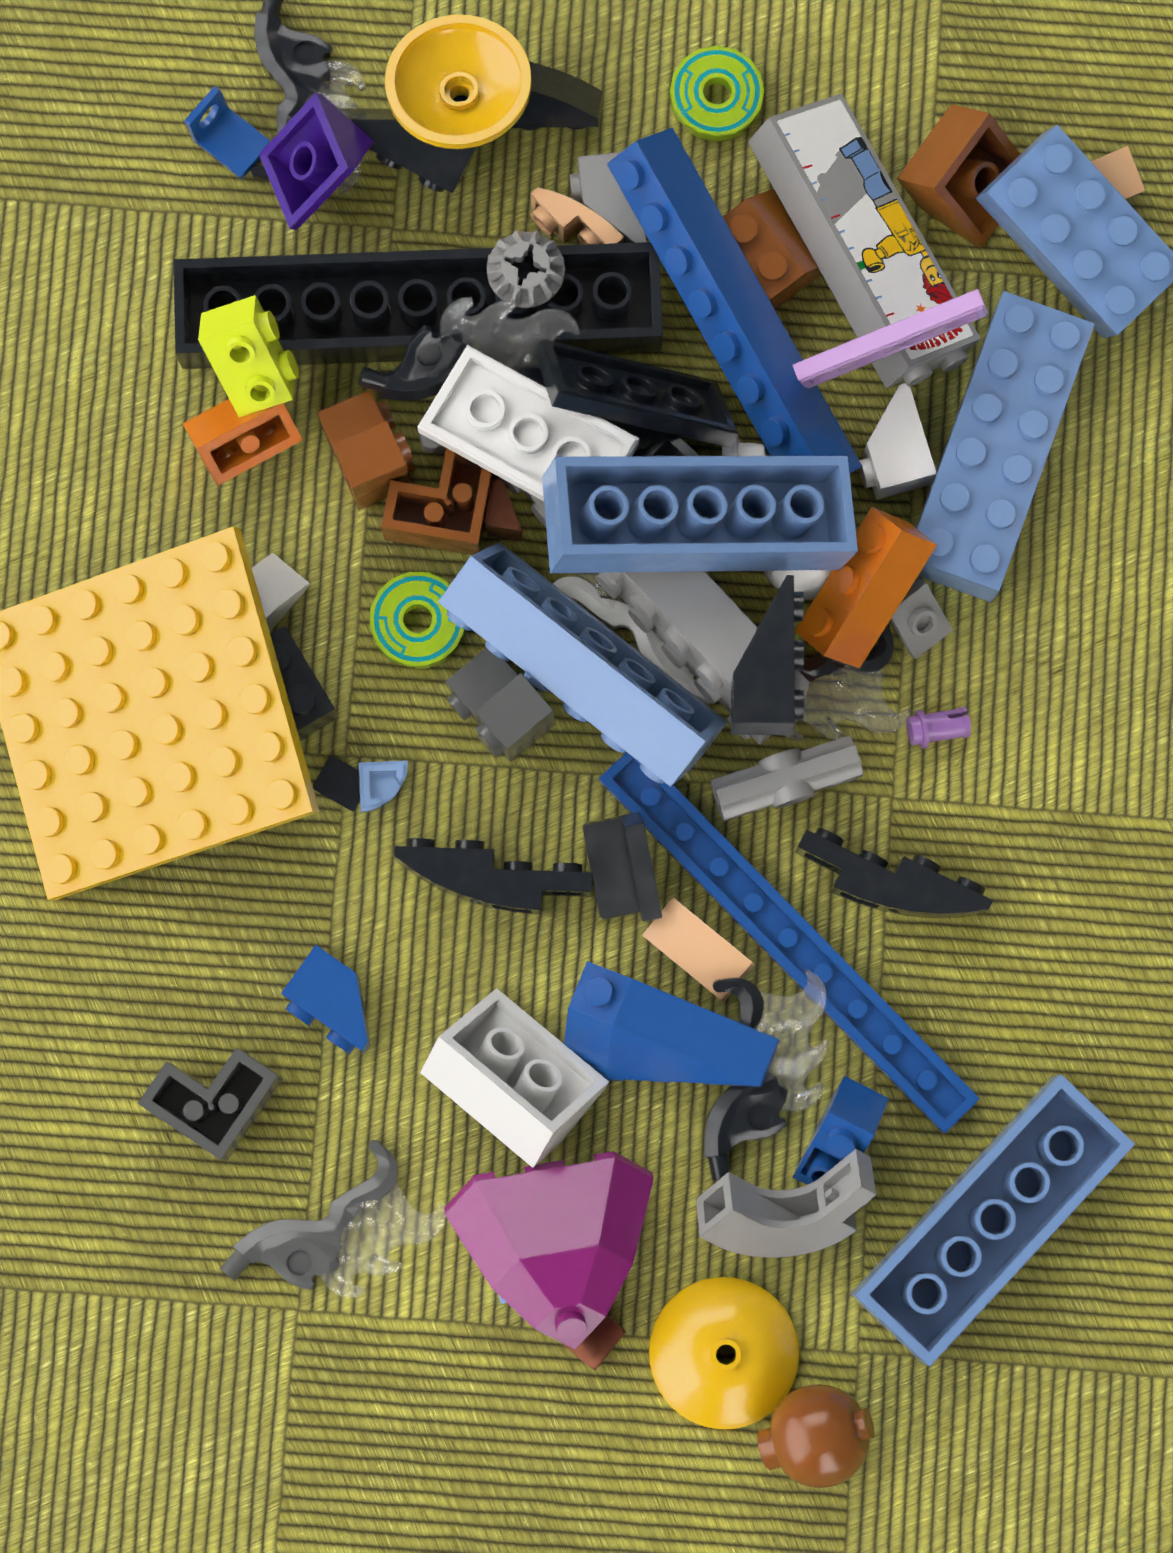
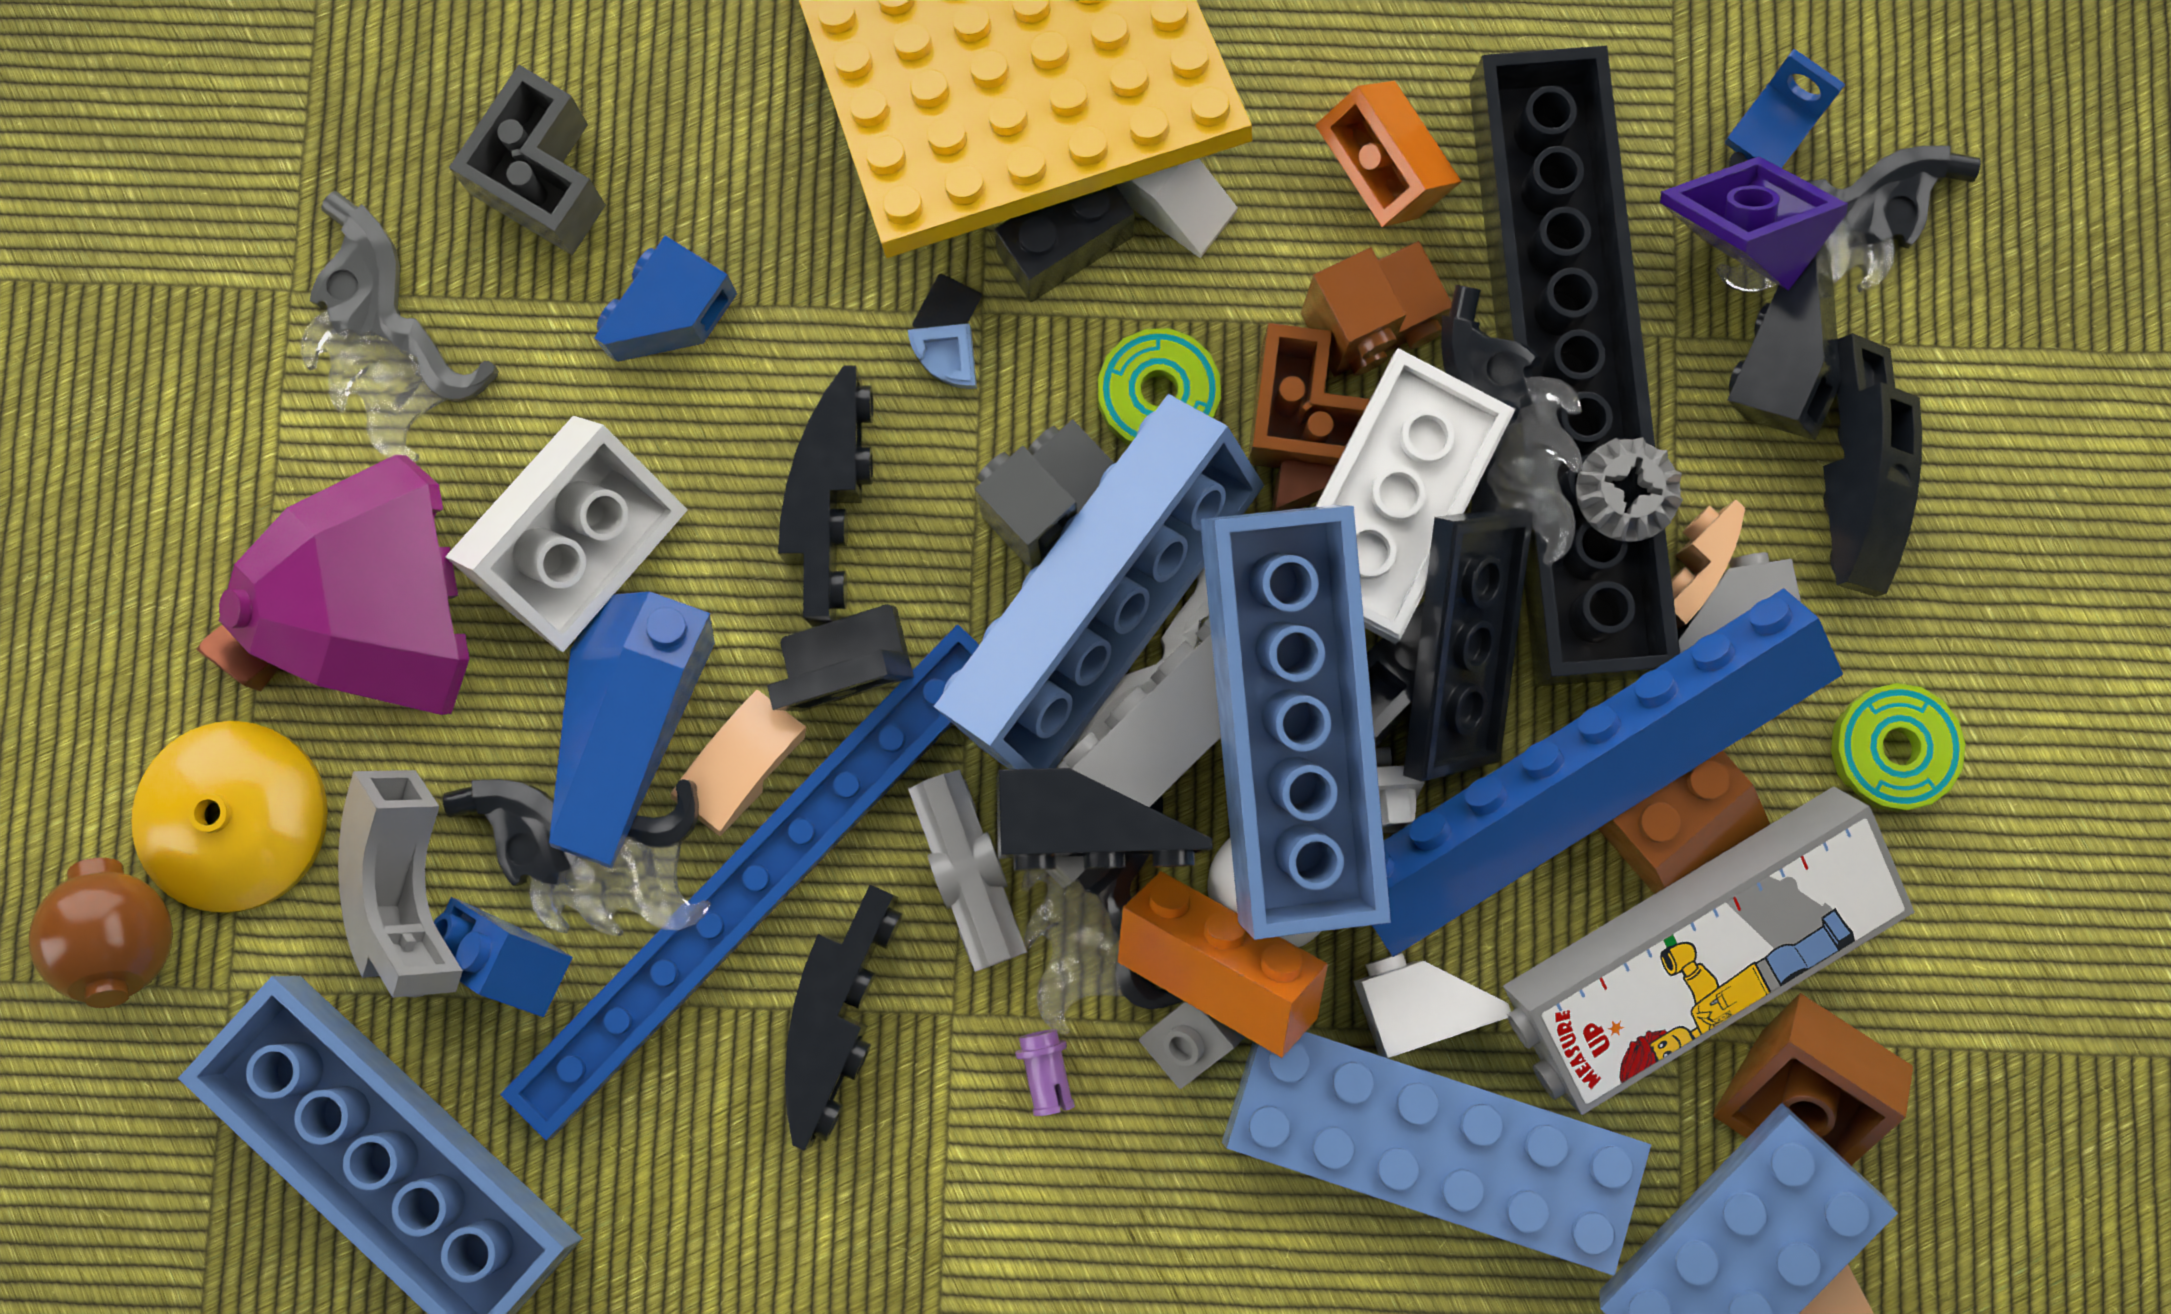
camera: 90 degrees right, 0 degrees up
(248, 356) = (1482, 135): neon yellow brick -> none
(453, 59) = (1904, 365): yellow dish -> none
(890, 339) = (1566, 984): lavender tile -> none

